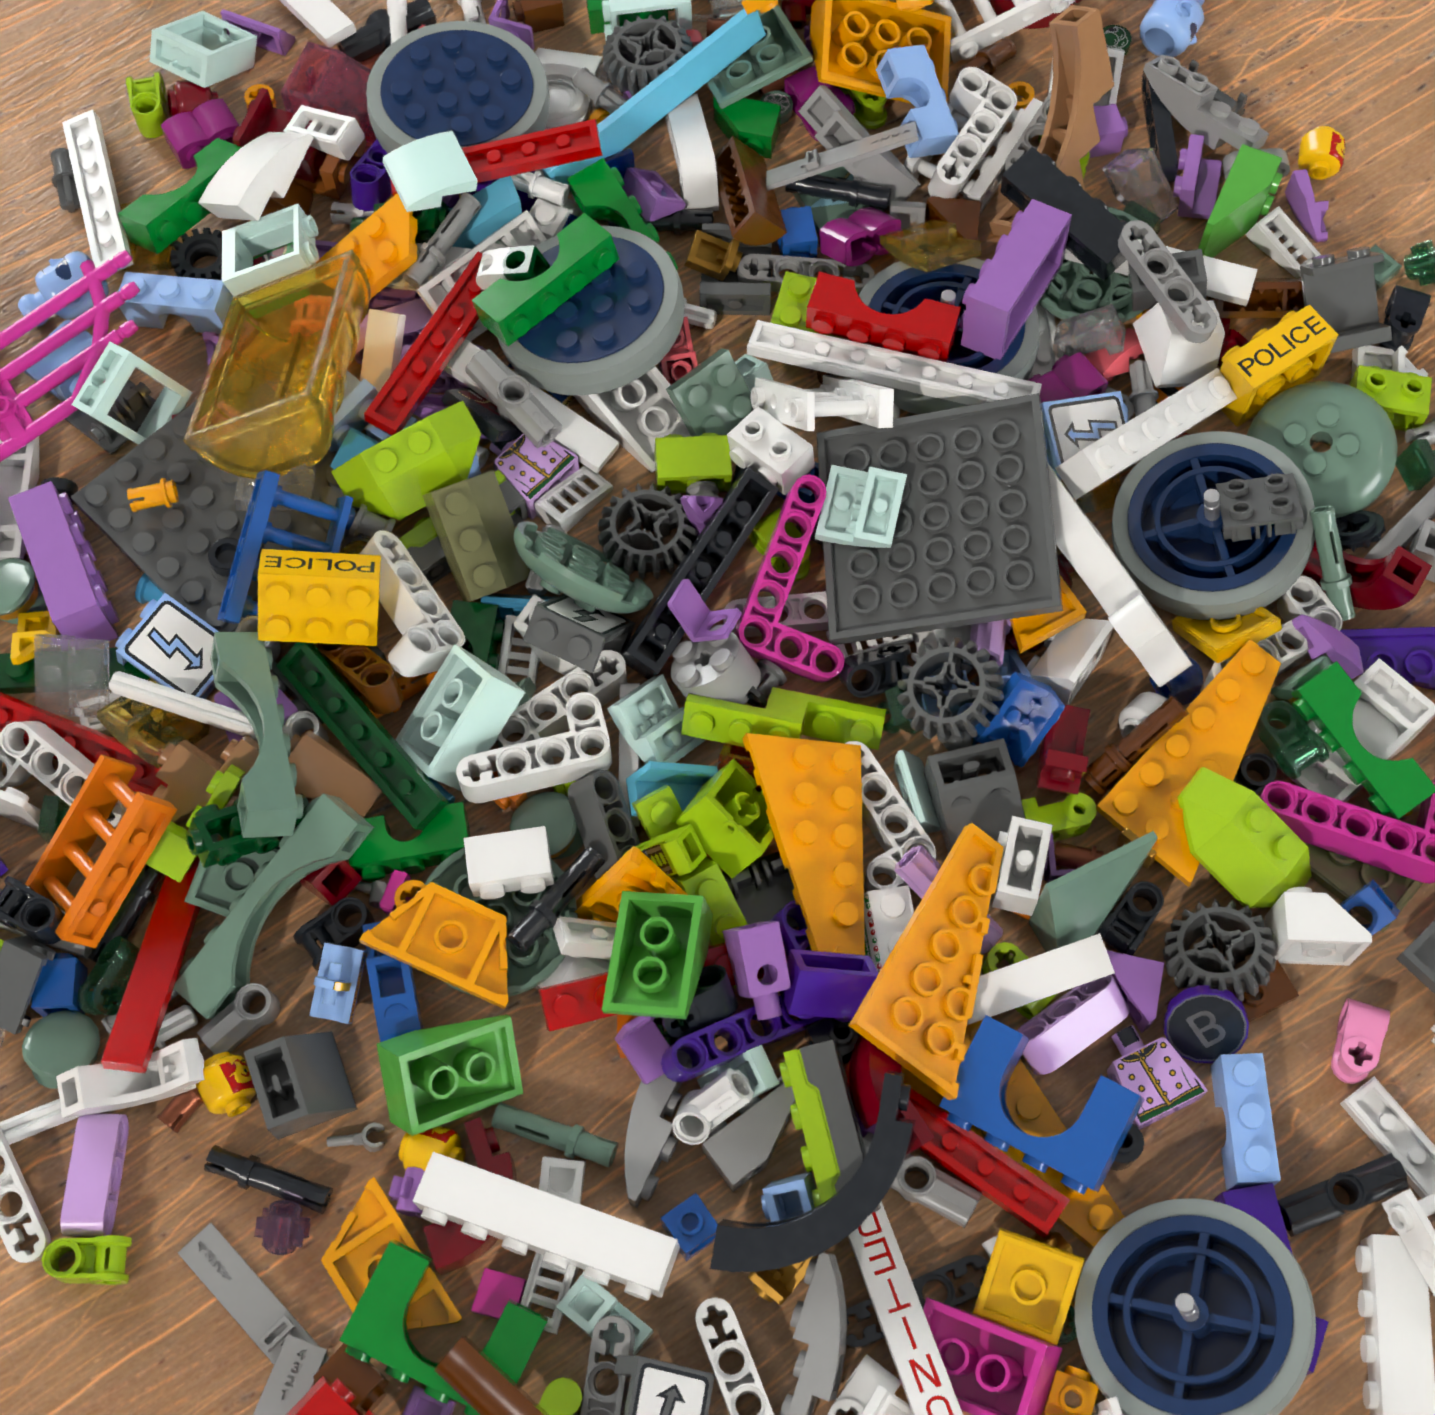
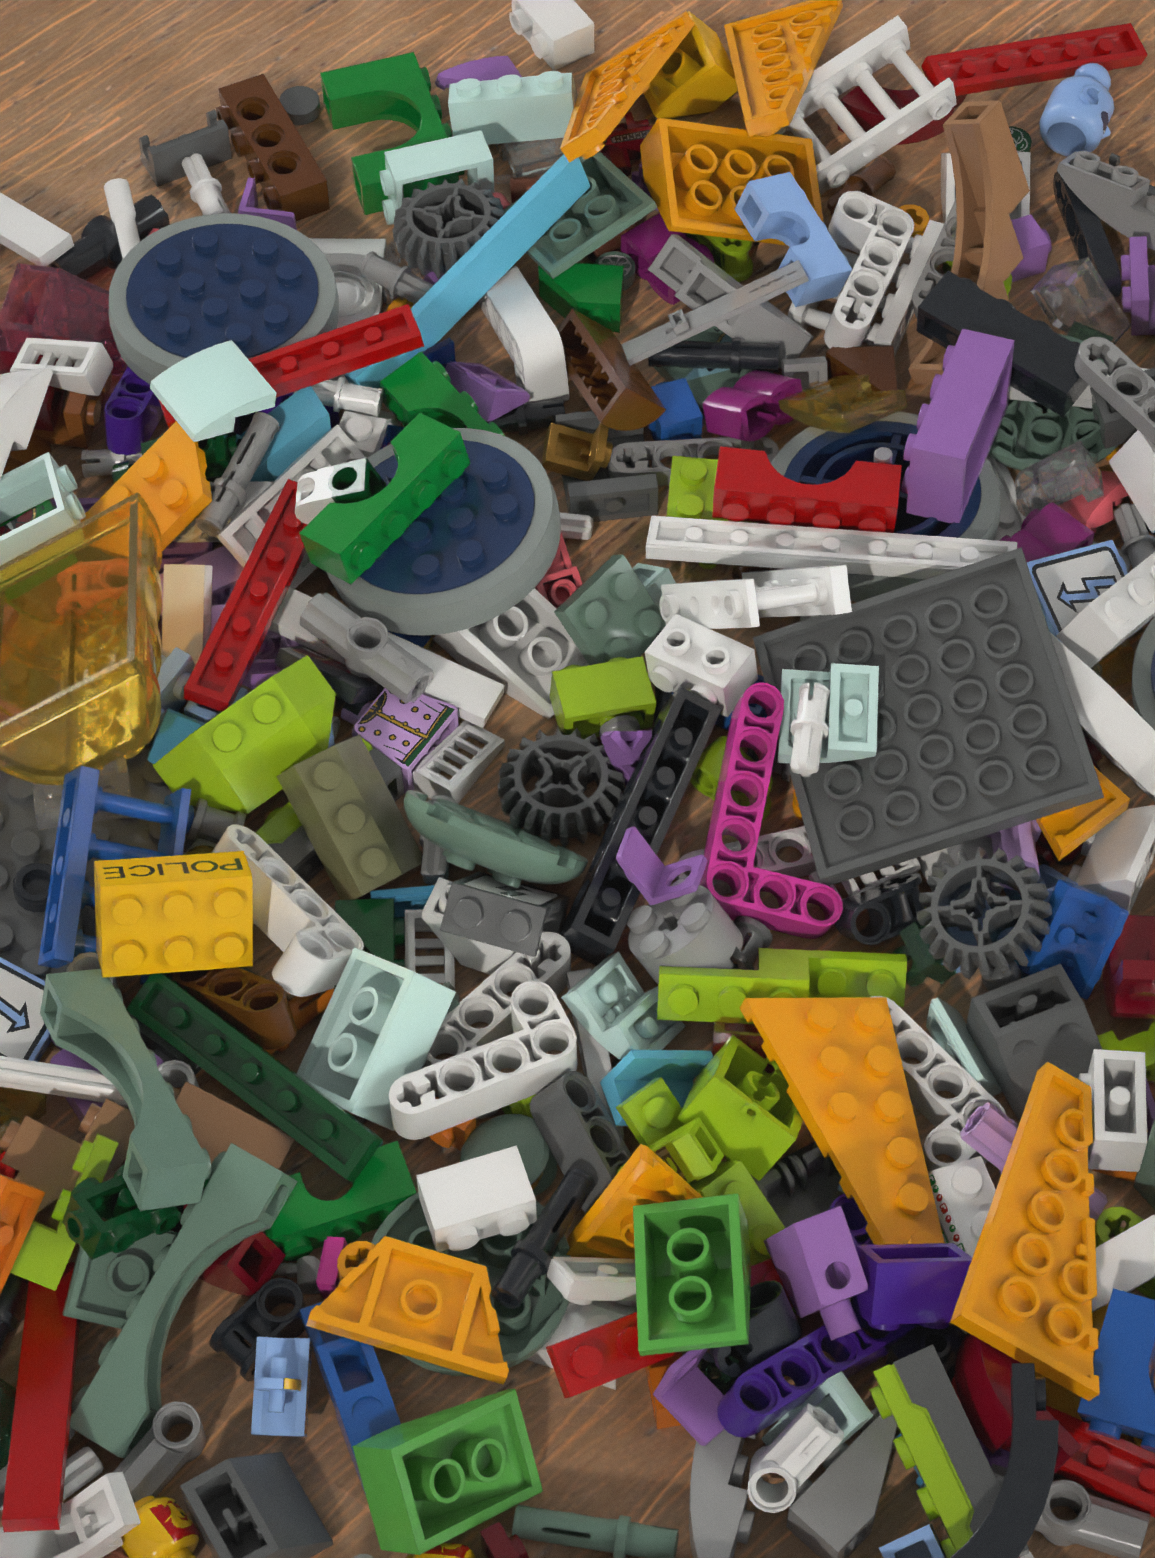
camera: 10 degrees left, 10 degrees down
(841, 518) = (809, 729): none -> white axle

